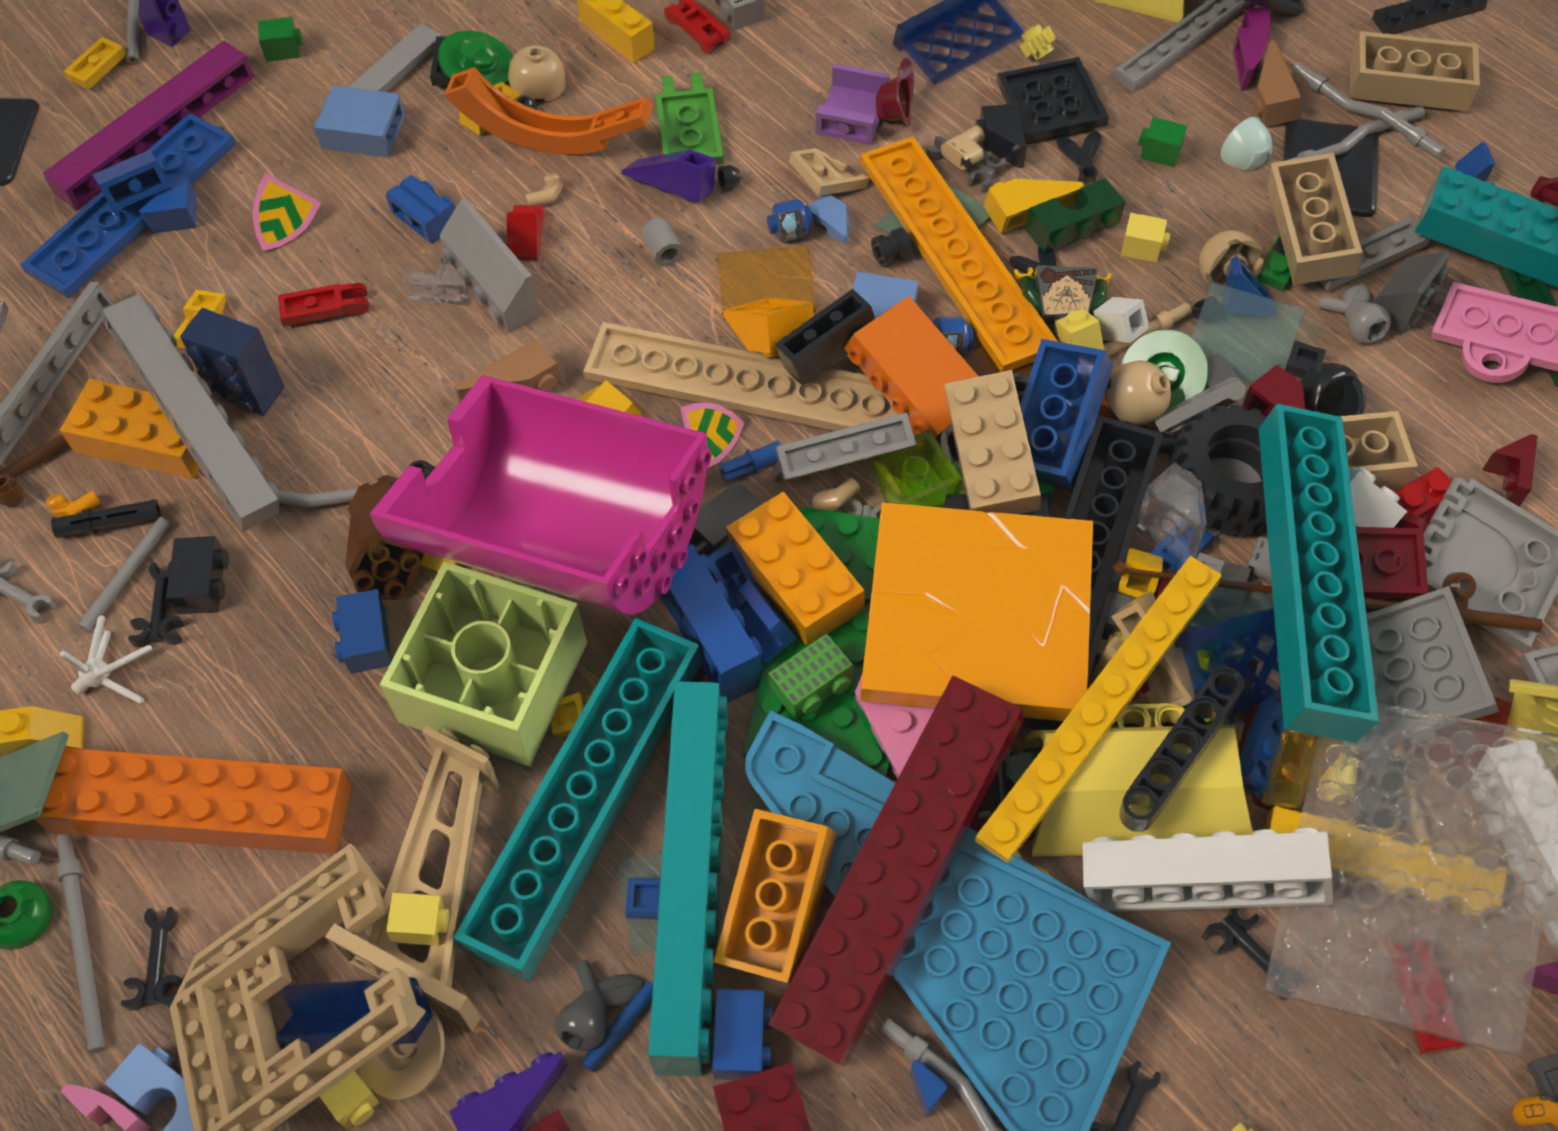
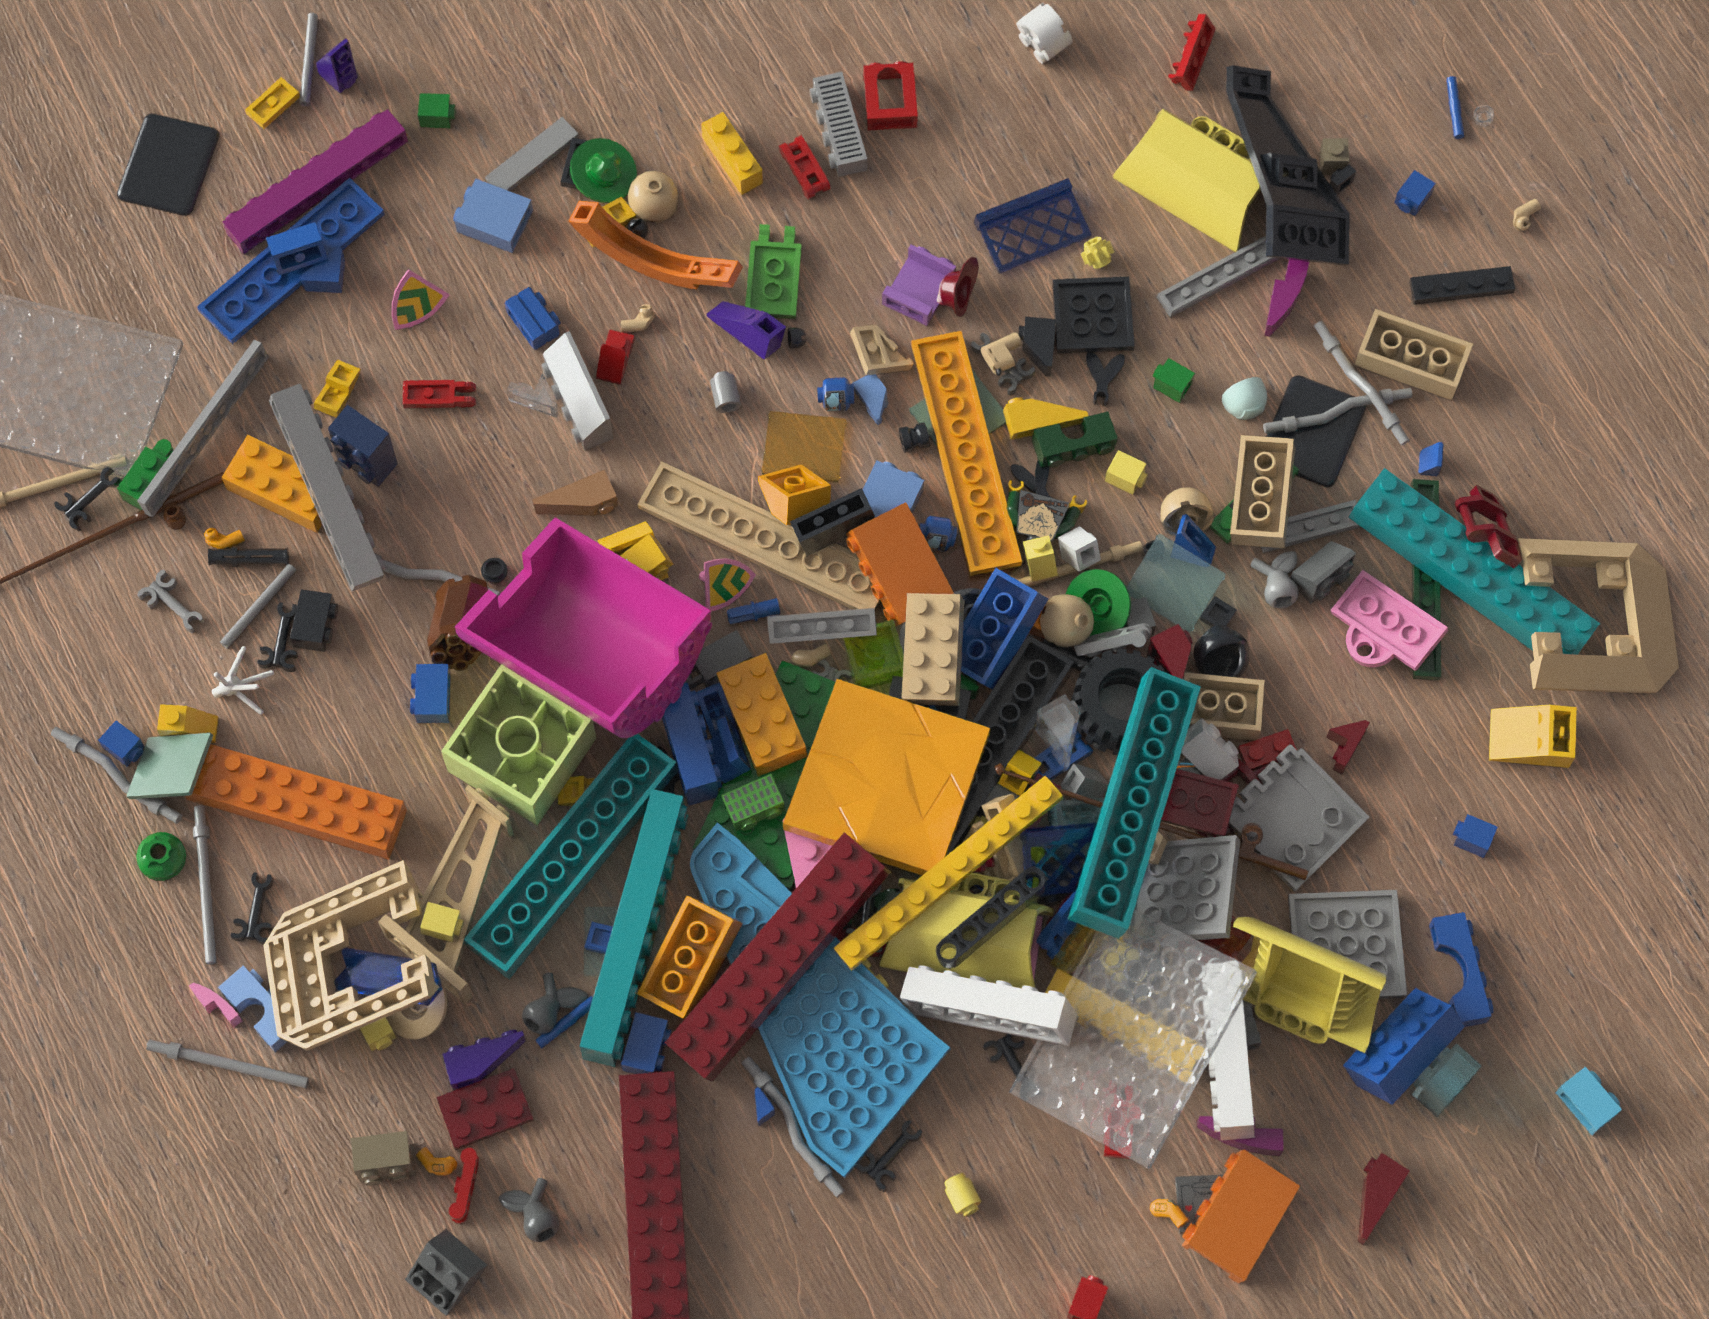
camera: 10 degrees right, 10 degrees up
(1277, 93) = (1286, 346): medium nougat slope -> none

